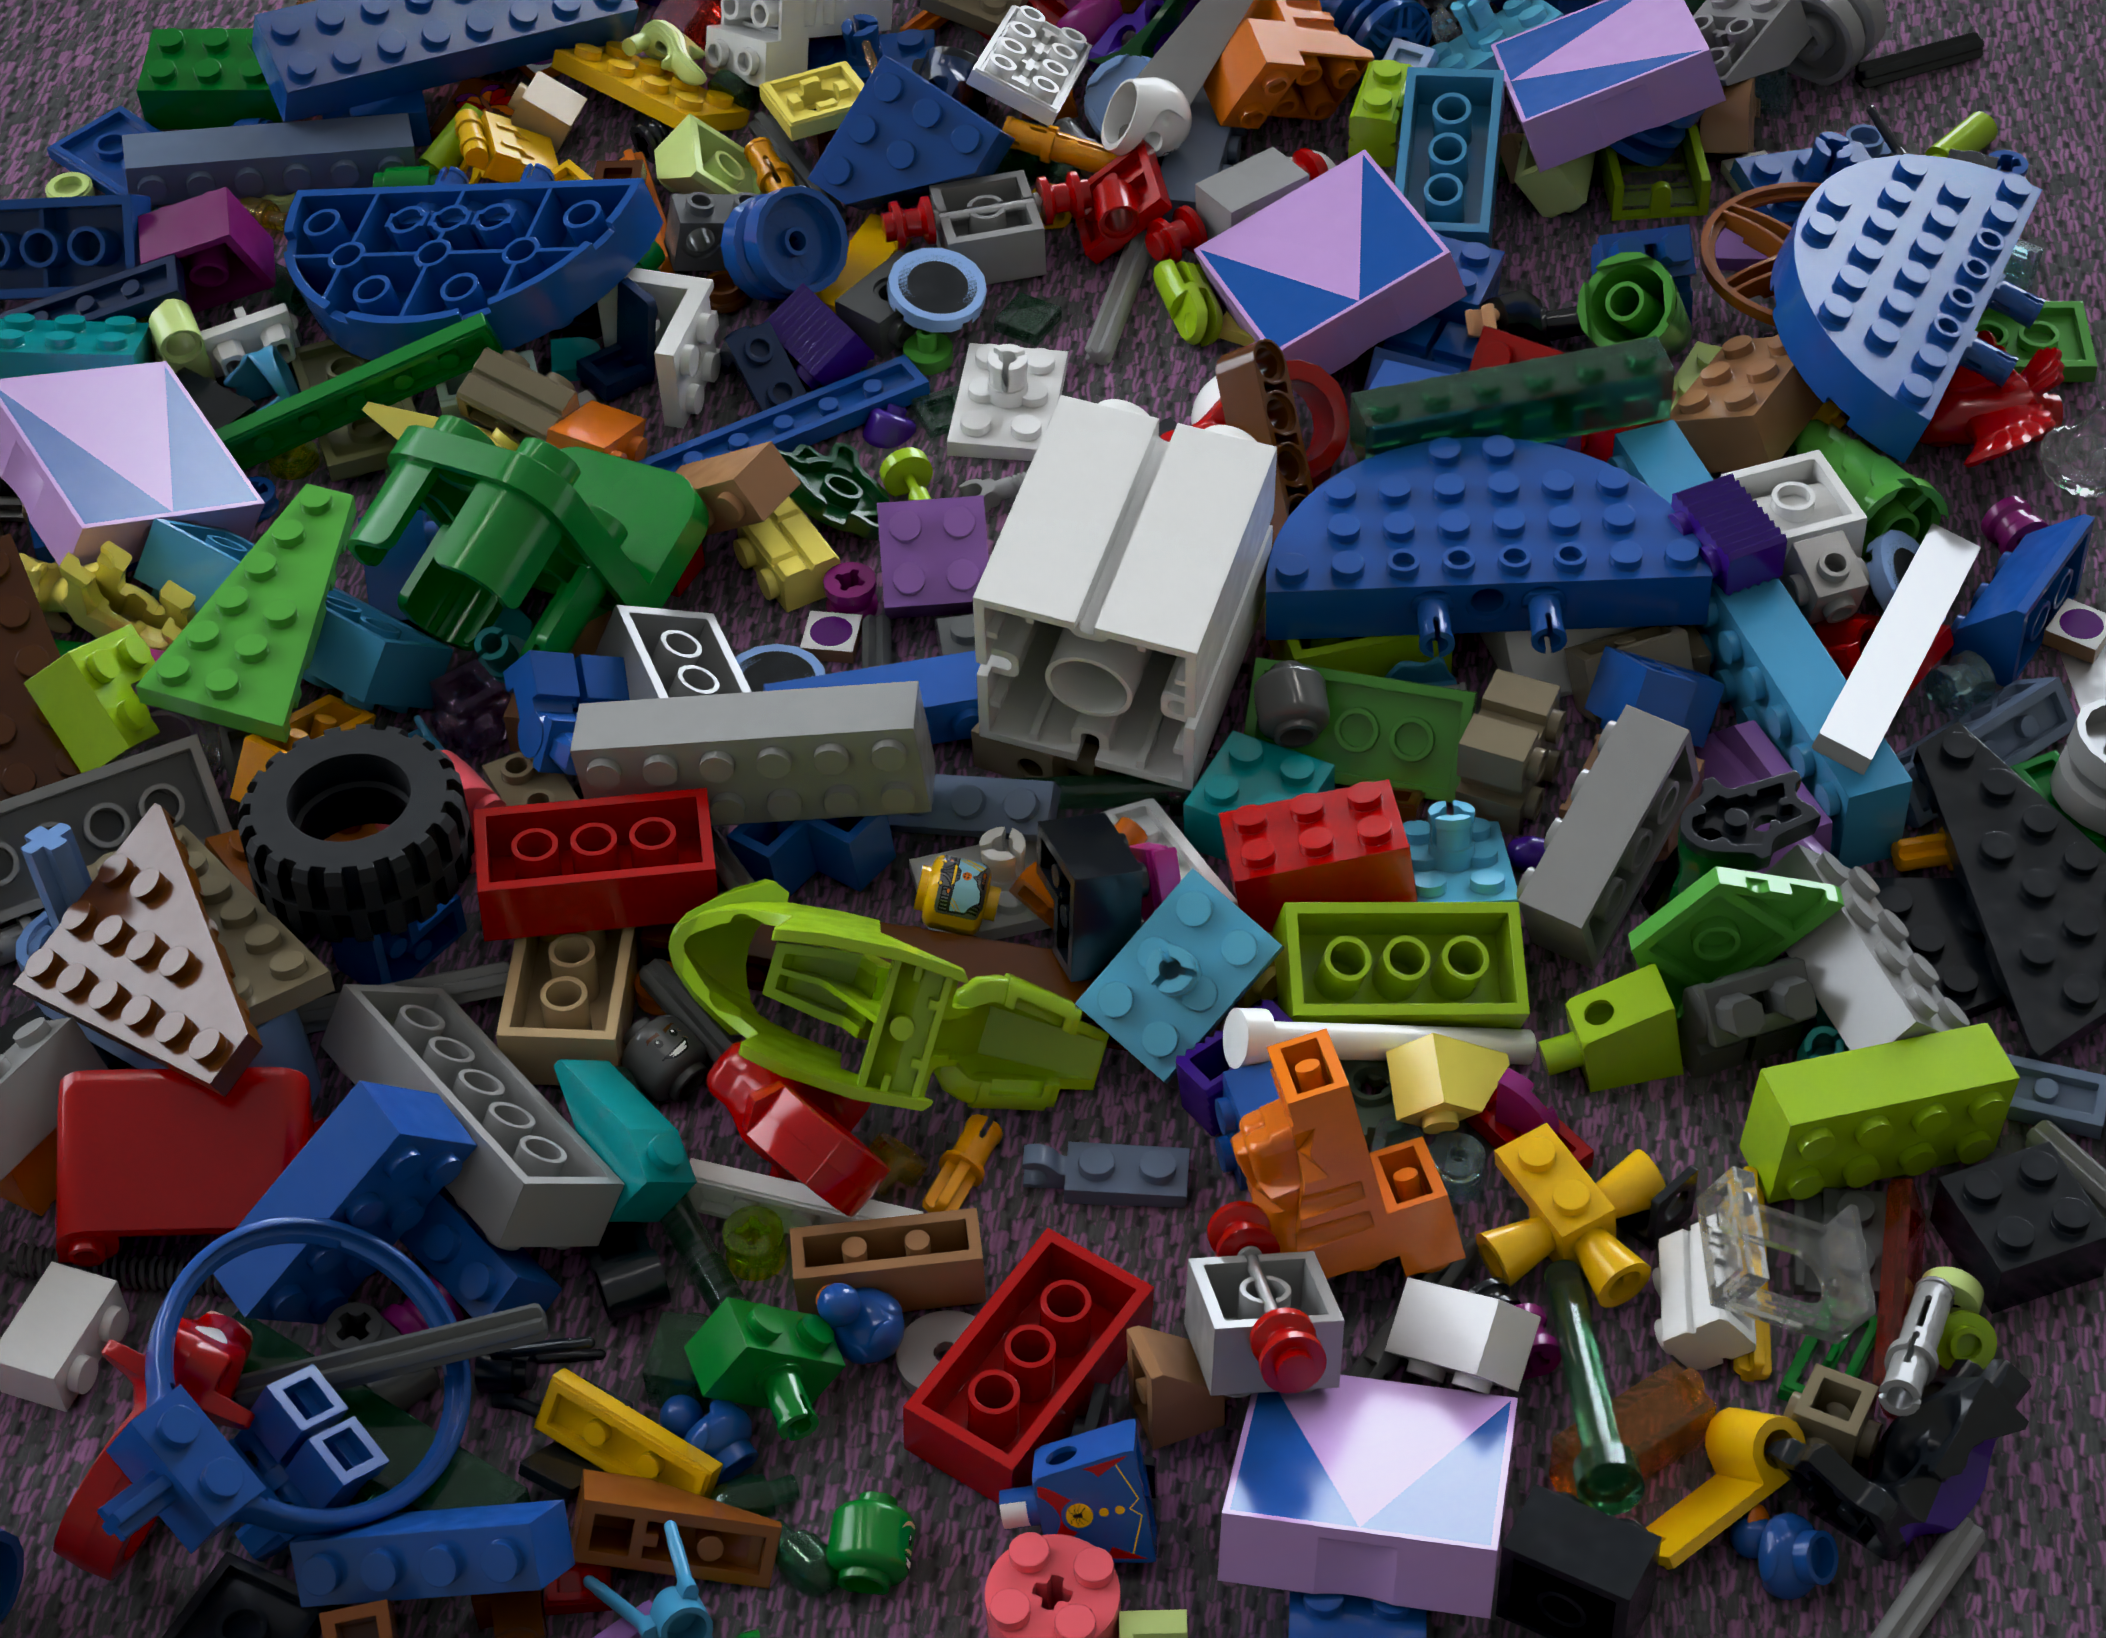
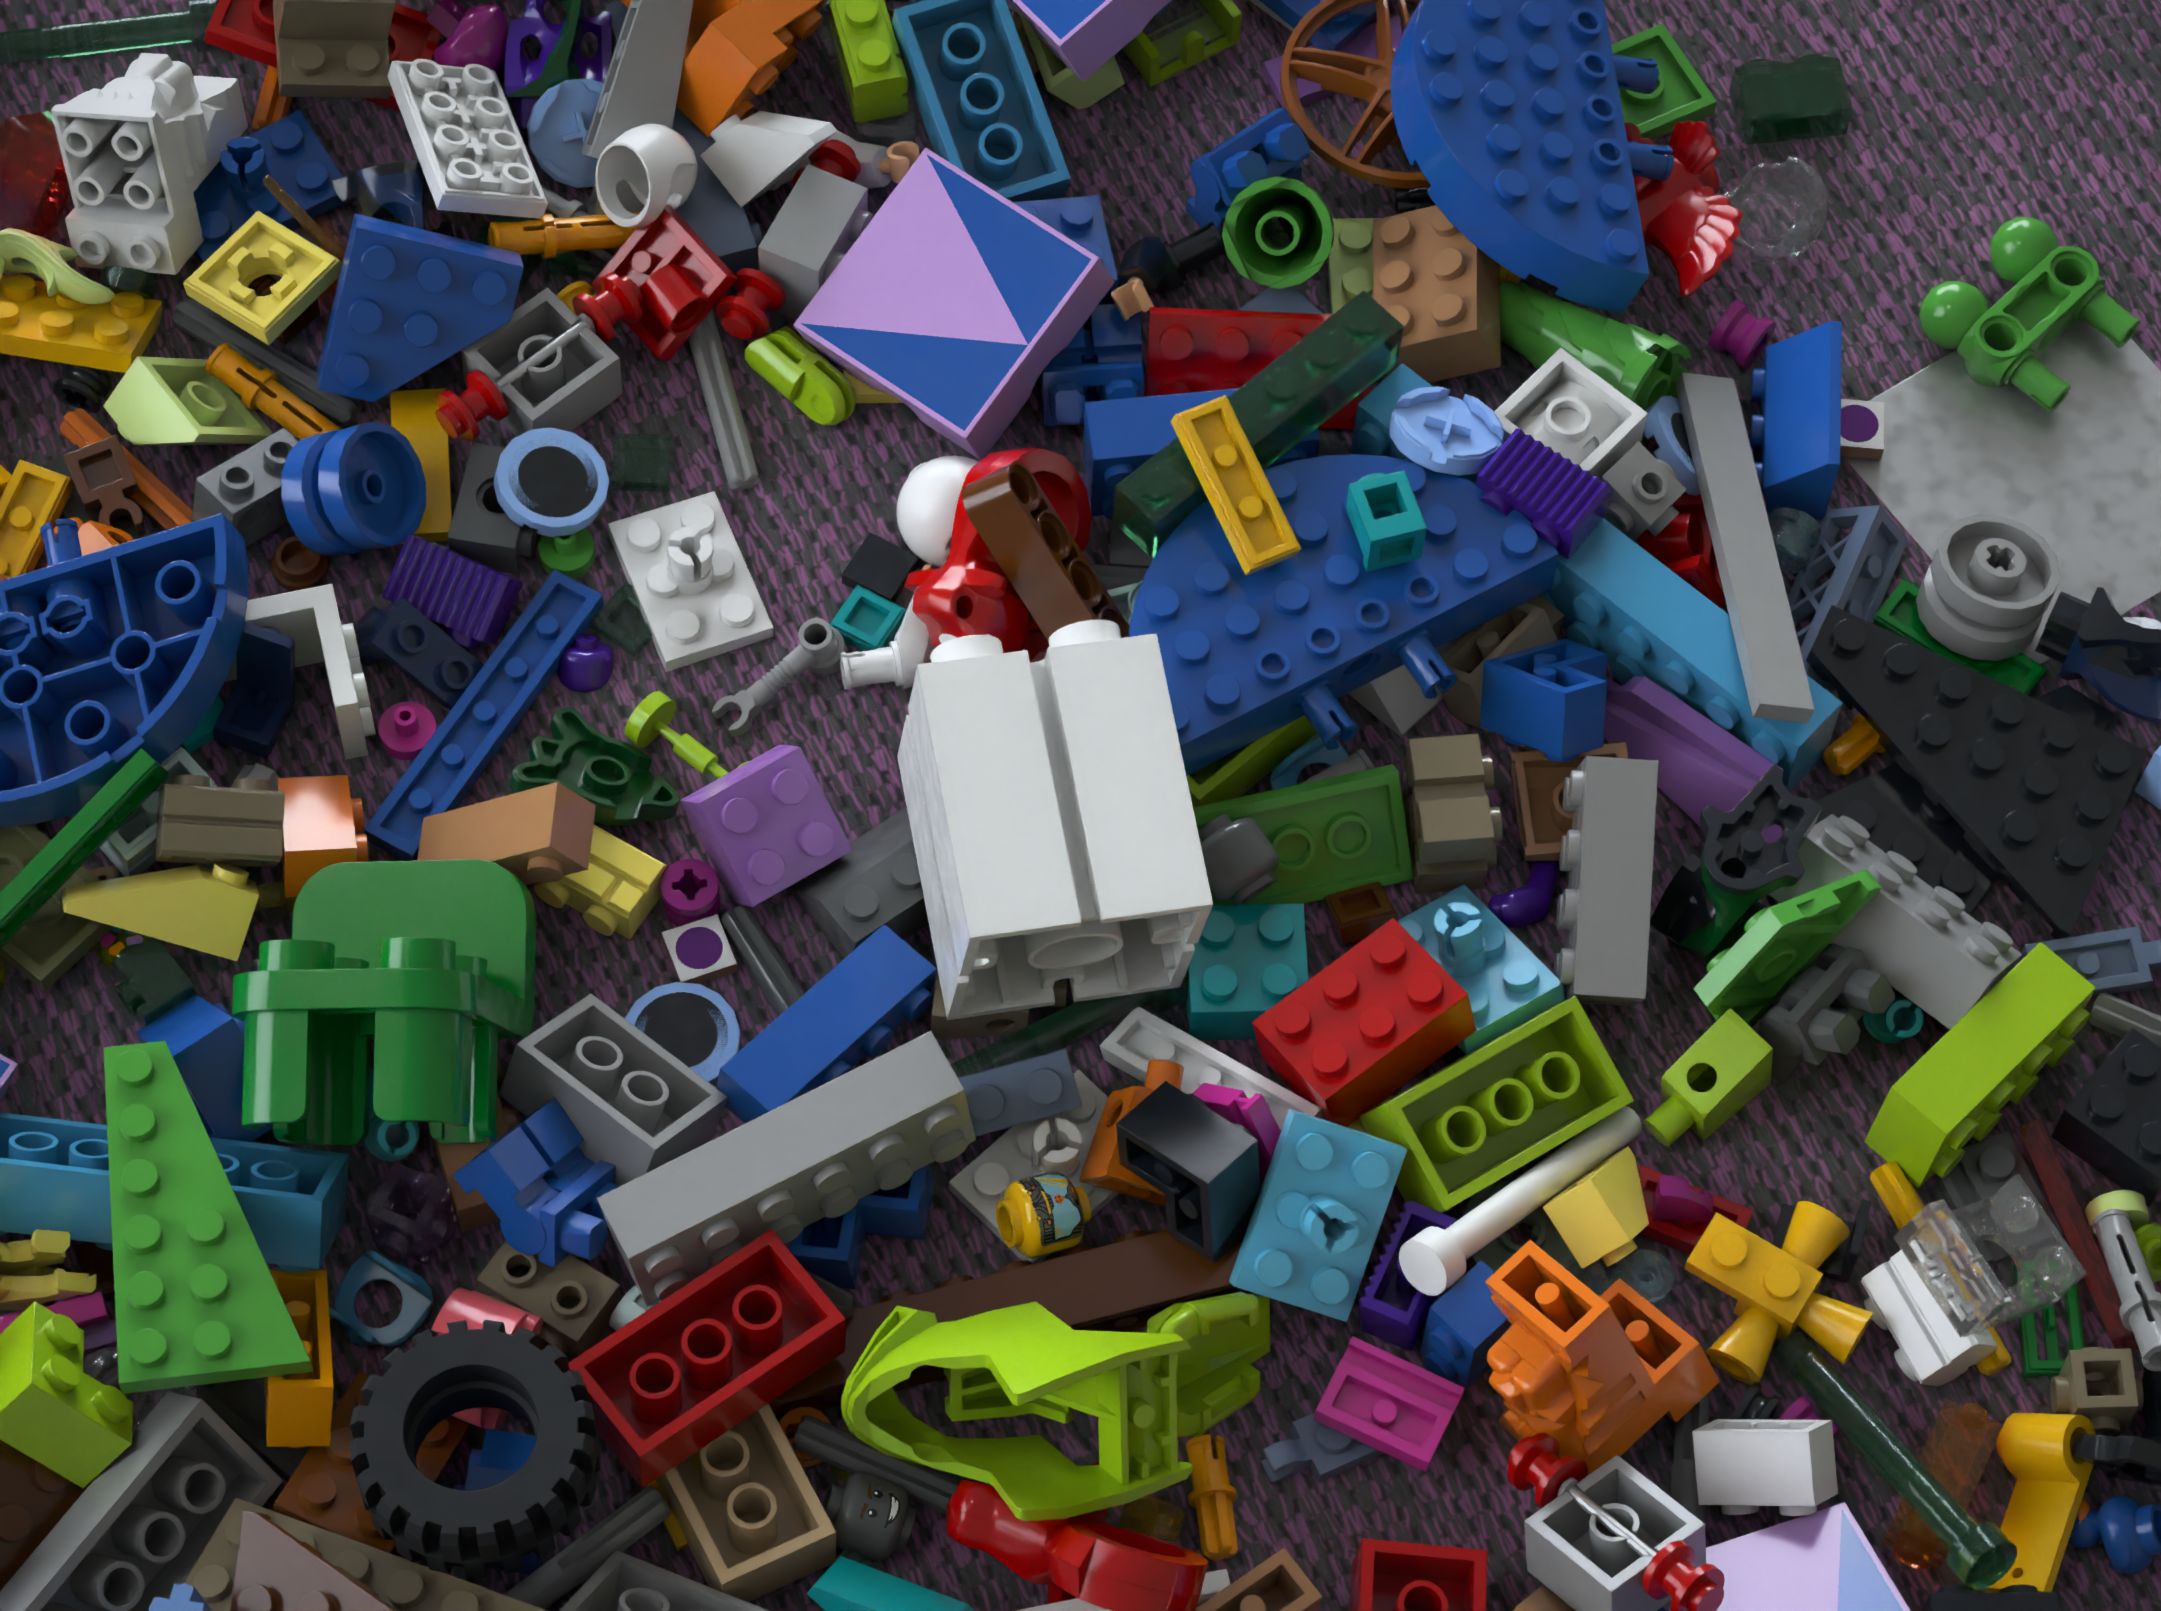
camera: 35 degrees left, 15 degrees up
(719, 413) = (406, 729): none -> dark pink tile
(1152, 1150) = (1389, 1404): none -> dark pink plate
(1244, 131) = (761, 151): none -> white slope
(1449, 421) = (1235, 485): none -> yellow tile
(1562, 488) = (1386, 519): none -> teal brick
(1667, 460) = (1445, 431): none -> light blue tile

